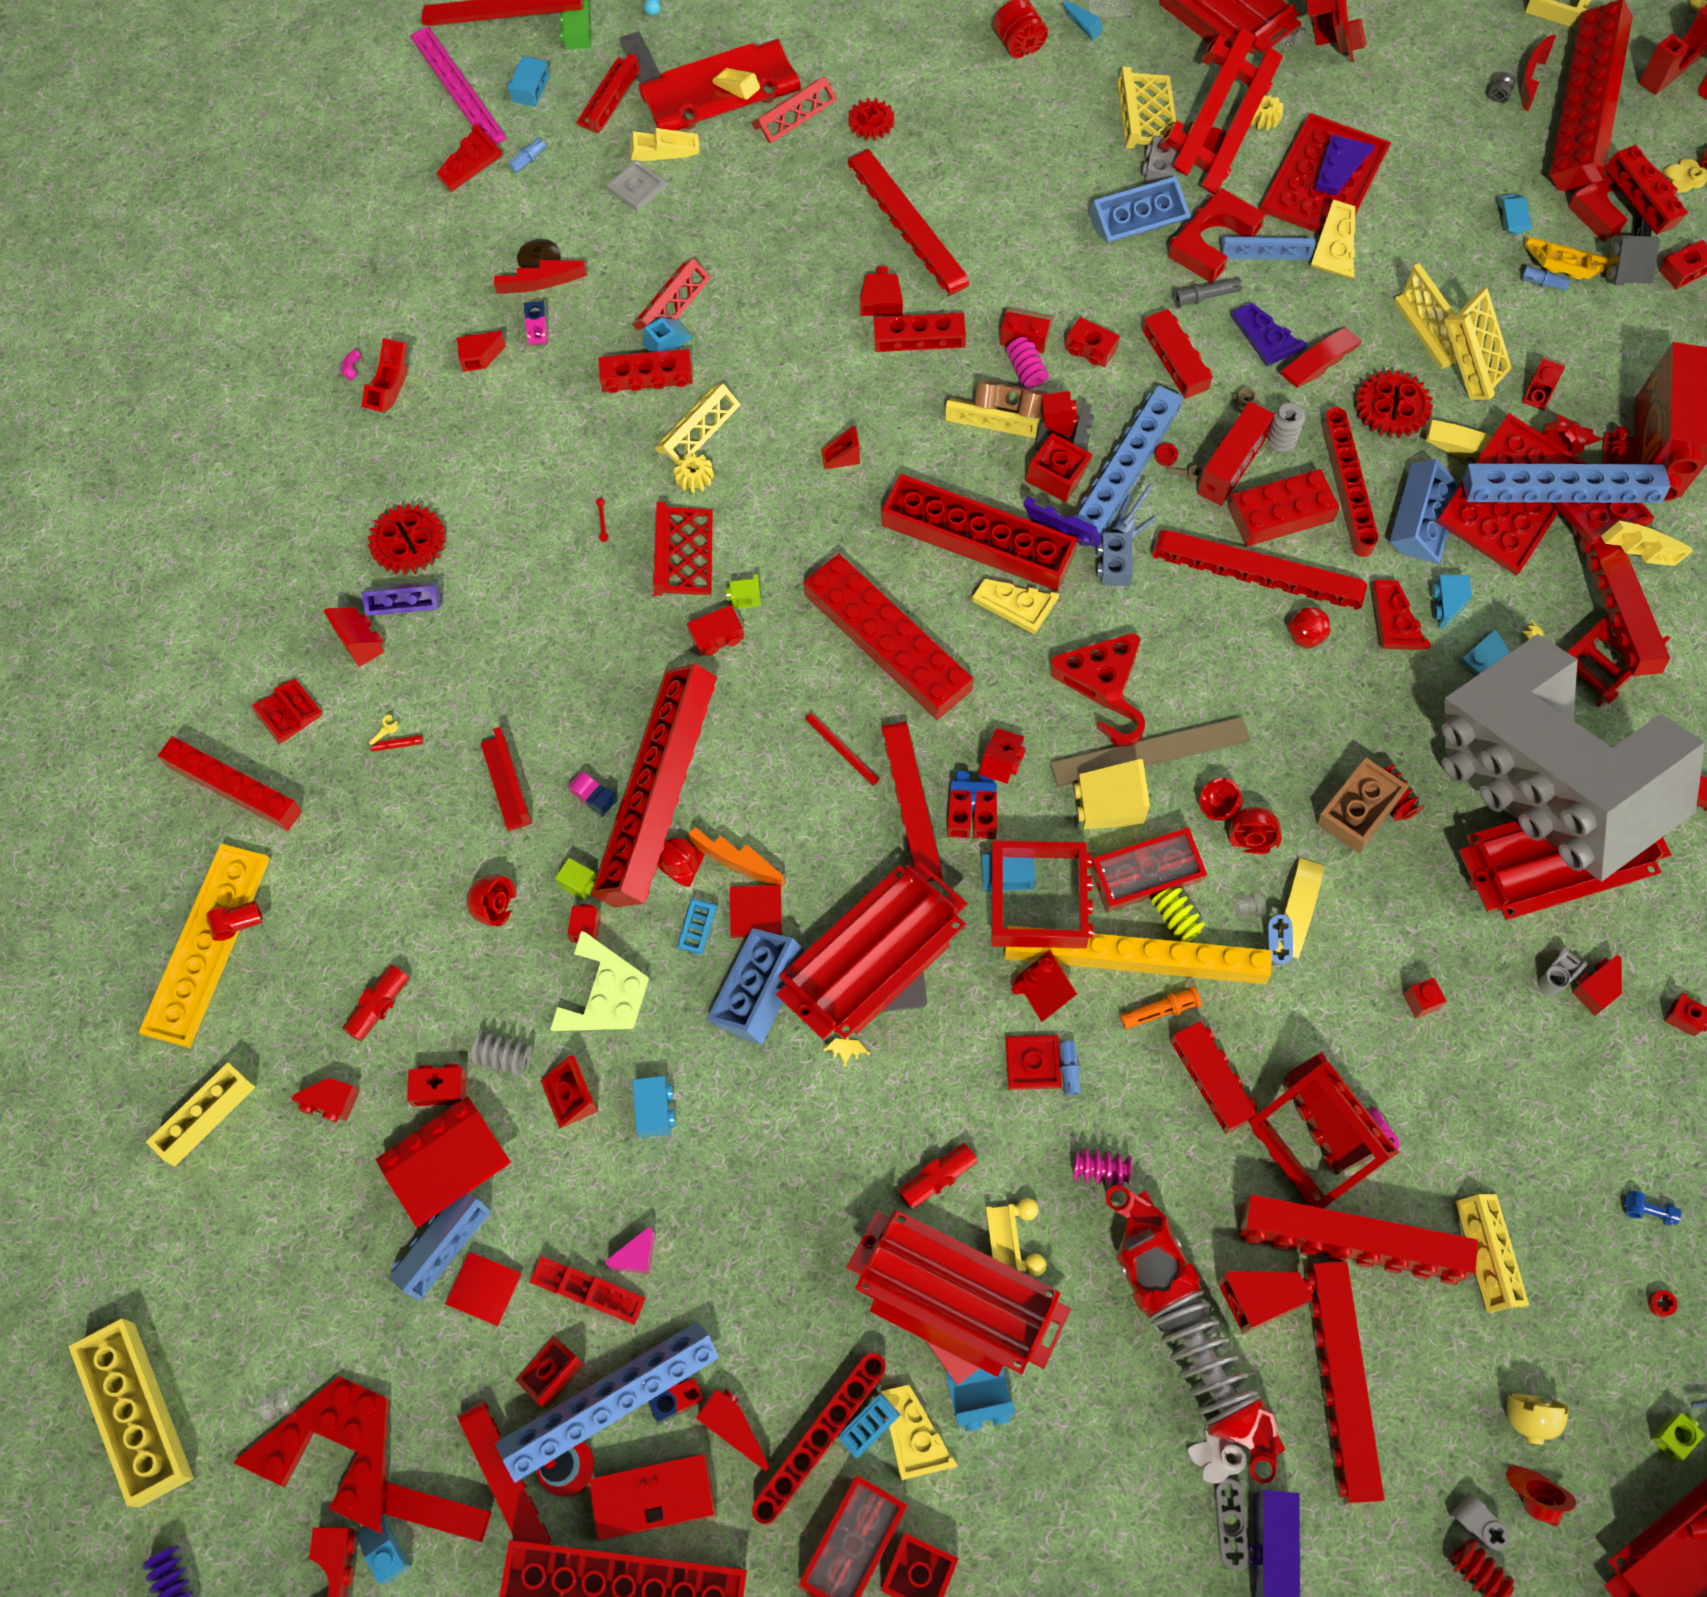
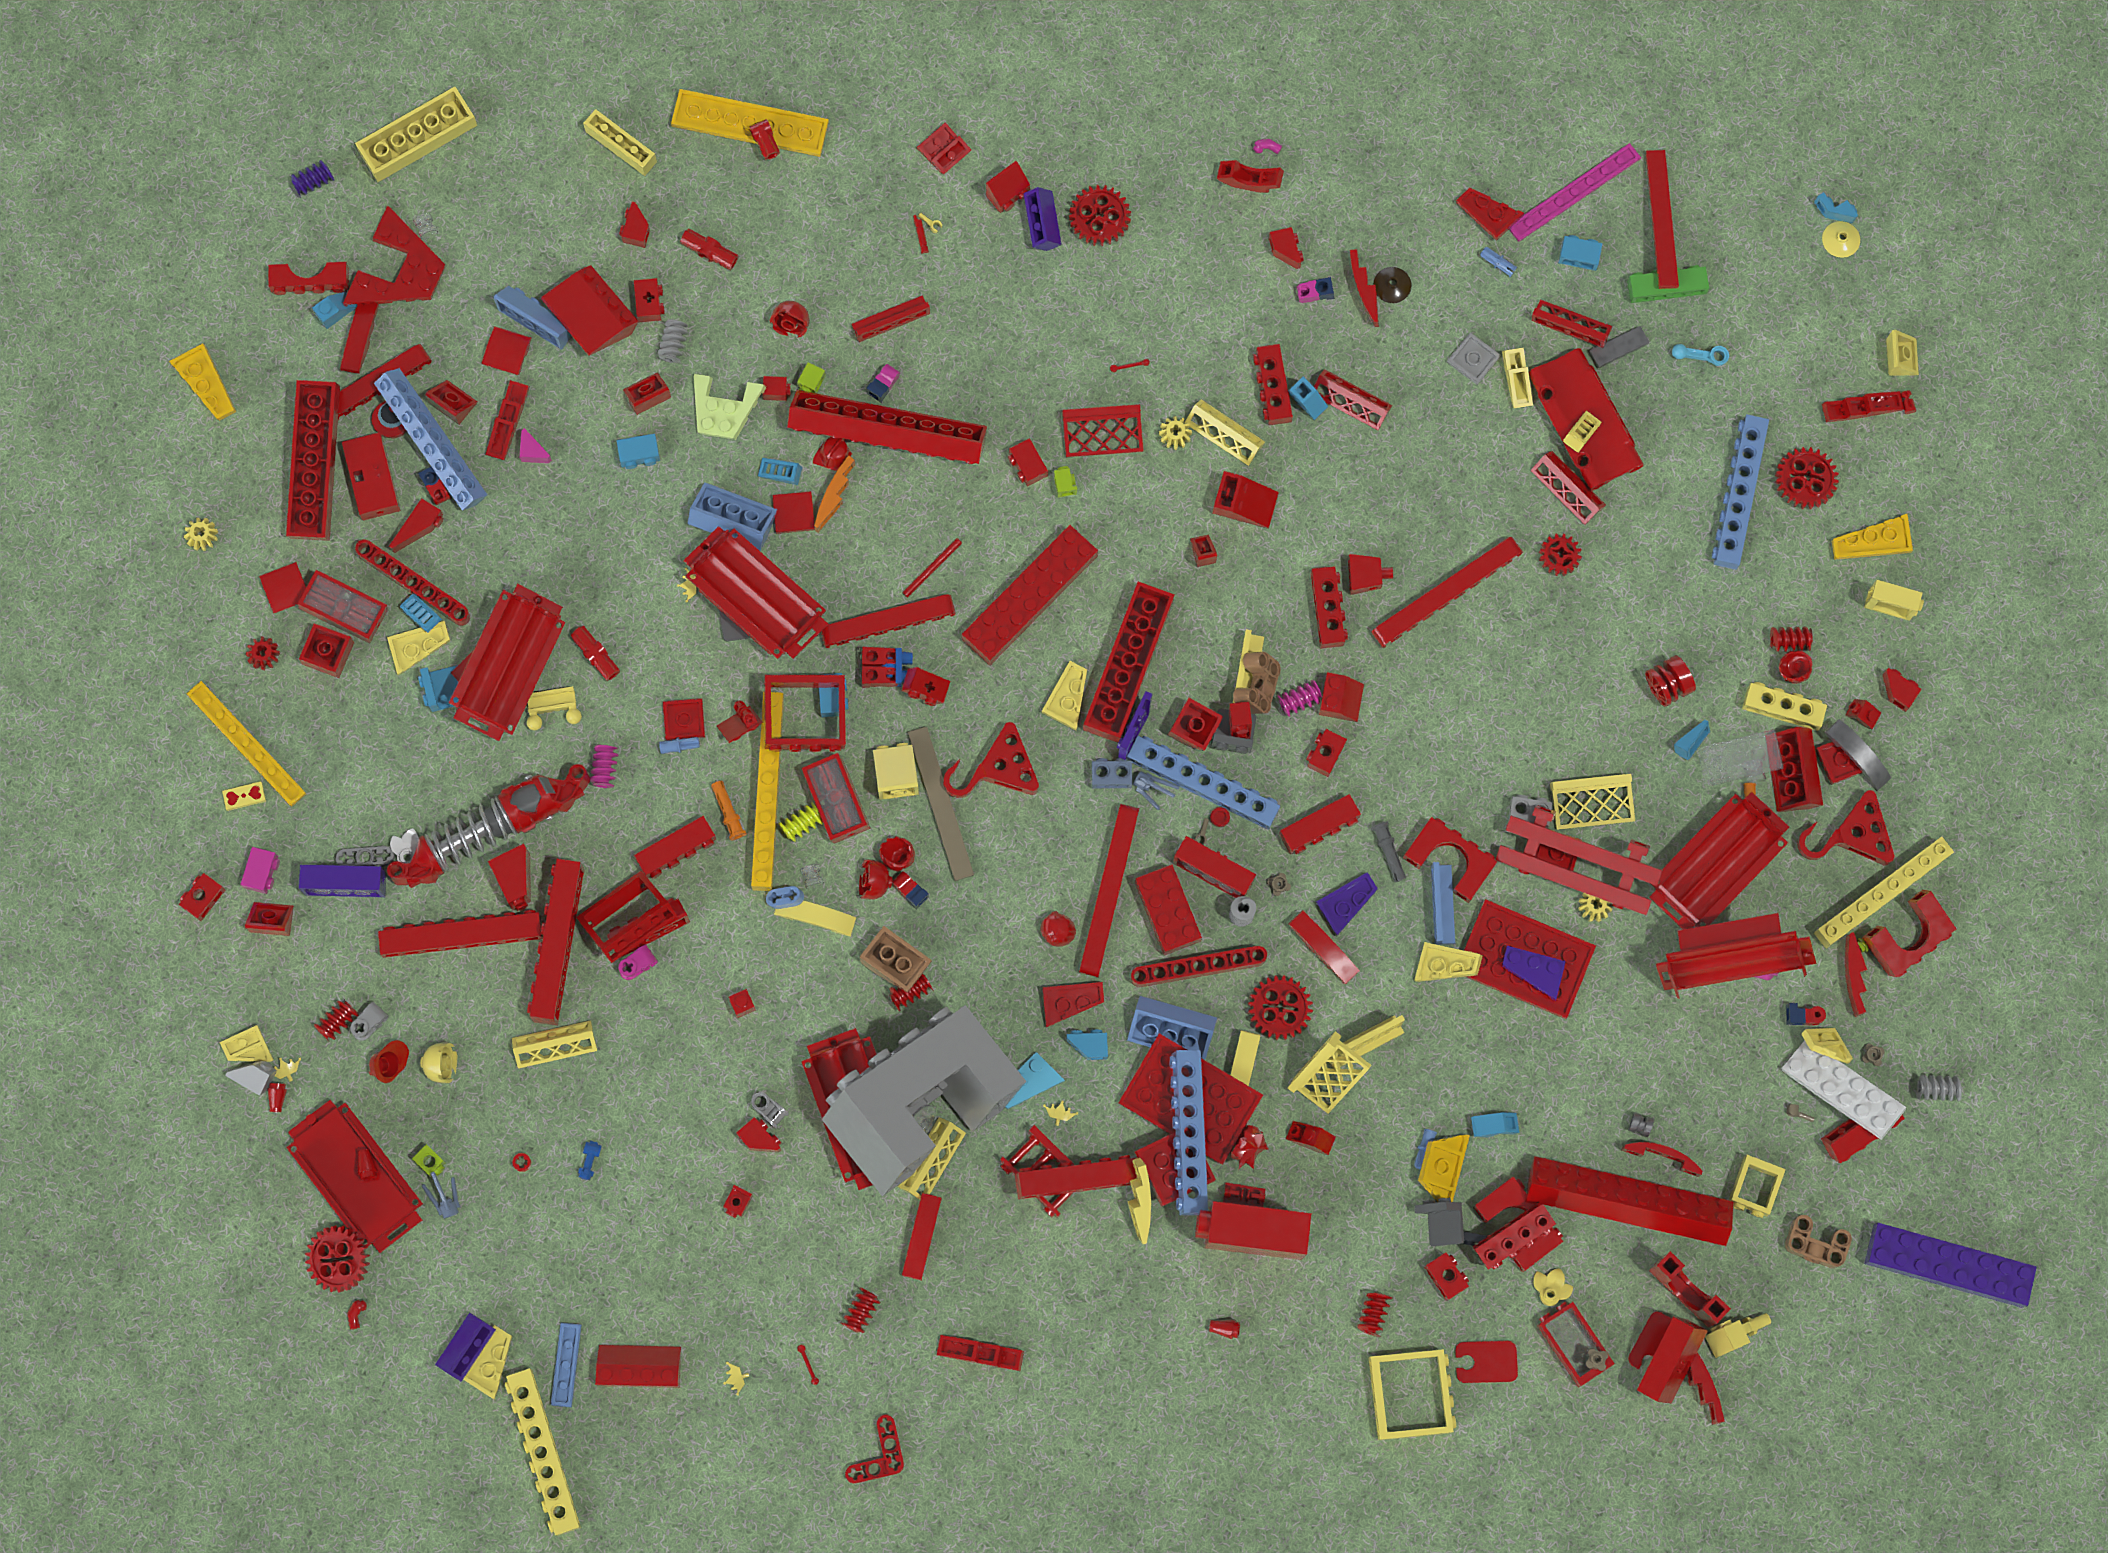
camera: 80 degrees right, 10 degrees up
(230, 783) = (877, 117): red brick -> none
(783, 408) = (1245, 500): none -> red slope
(1139, 210) = (1466, 791): medium blue slope -> none
(1266, 787) = (910, 890): none -> leg

